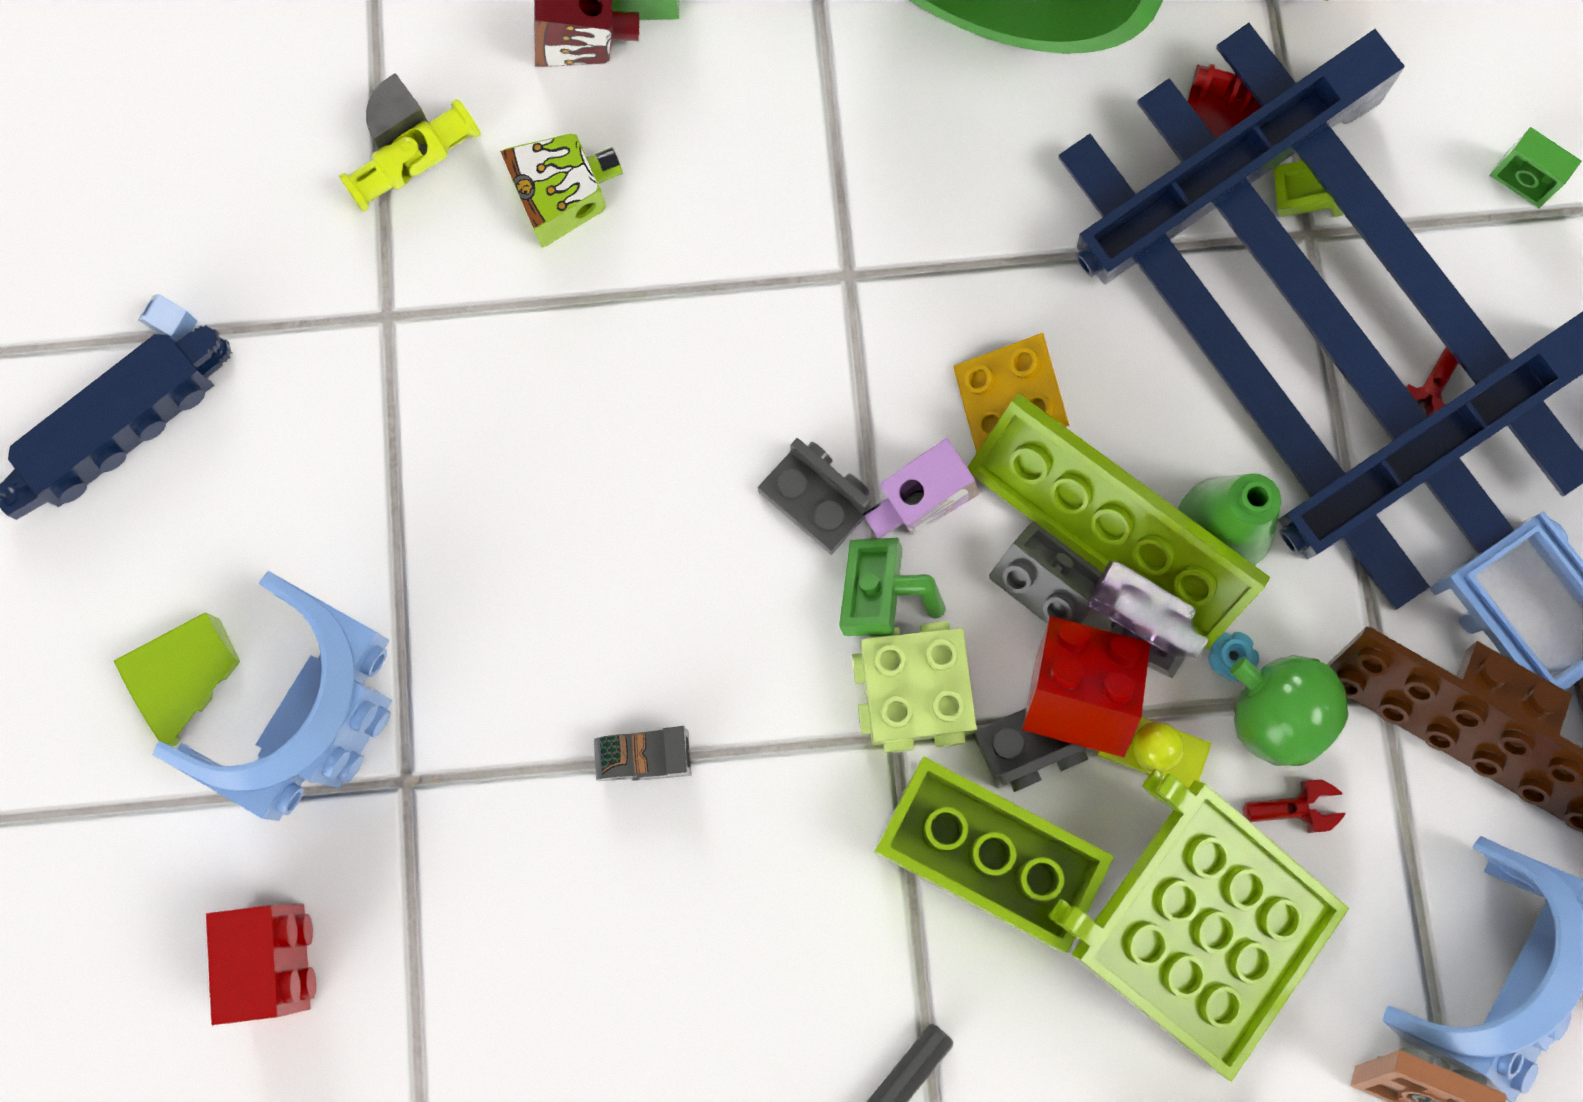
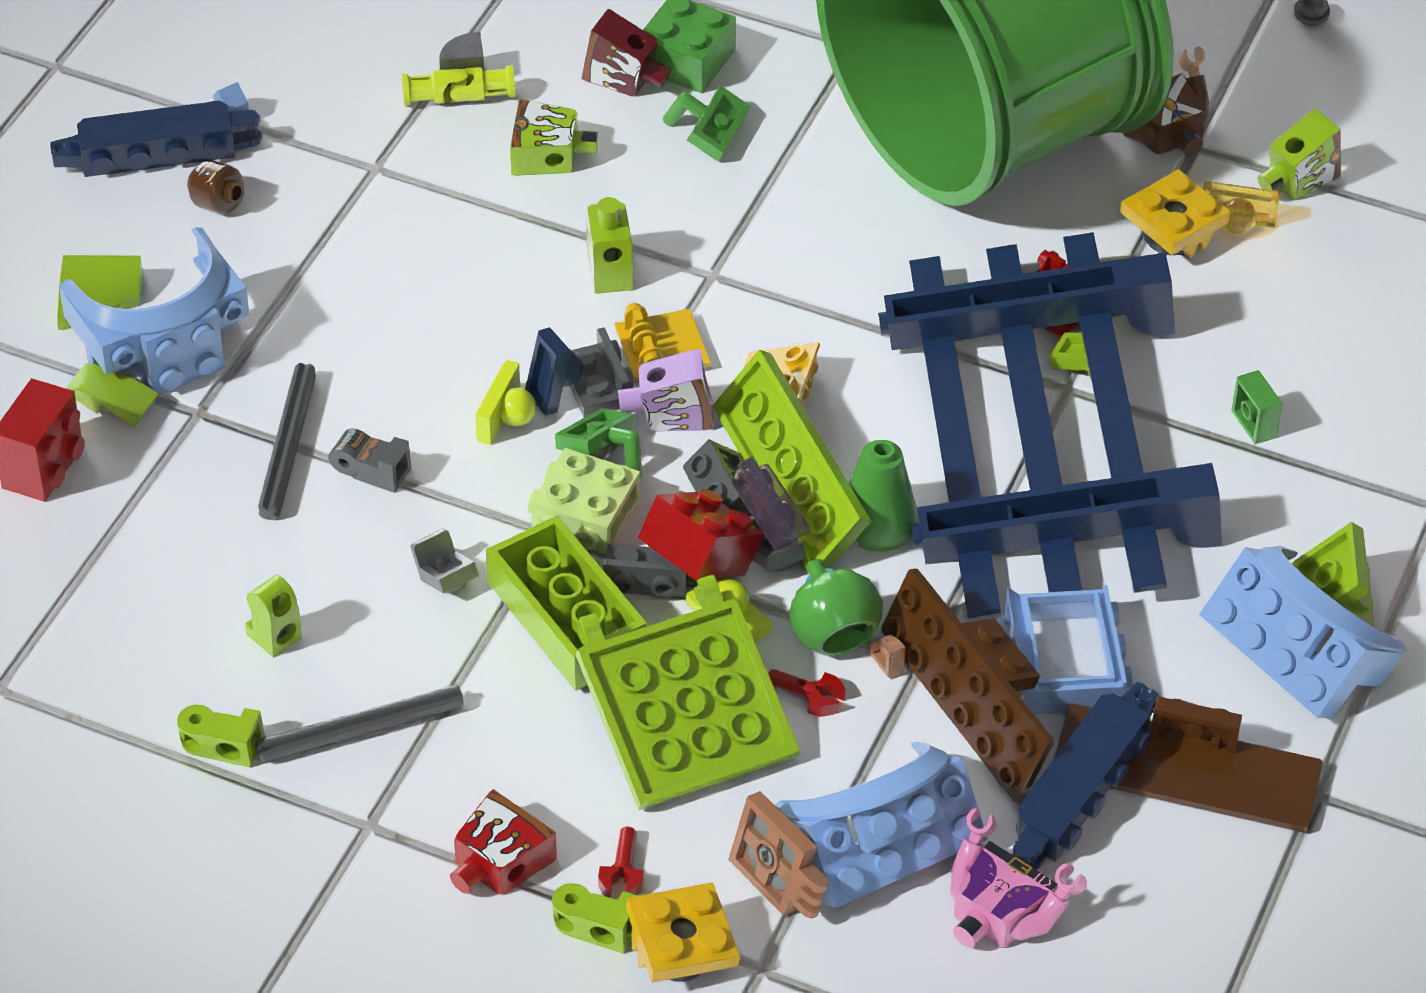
camera: 25 degrees right, 30 degrees down
(226, 455) = (216, 187): none -> reddish brown head
(312, 825) = (114, 392): none -> lime slope
(532, 777) = (286, 441): none -> dark grey axle
(682, 1058) = (272, 609): none -> lime leg
(724, 308) = (608, 228): none -> lime torso
(730, 58) = (716, 120): none -> bright green plate
(754, 595) = (504, 403): none -> neon yellow tile
(779, 532) = (551, 369): none -> dark blue tile
(819, 866) = (440, 563): none -> flat silver bracket
(857, 409) = (657, 336): none -> yellow hinge
(1365, 721) = (889, 655): none -> nougat tile

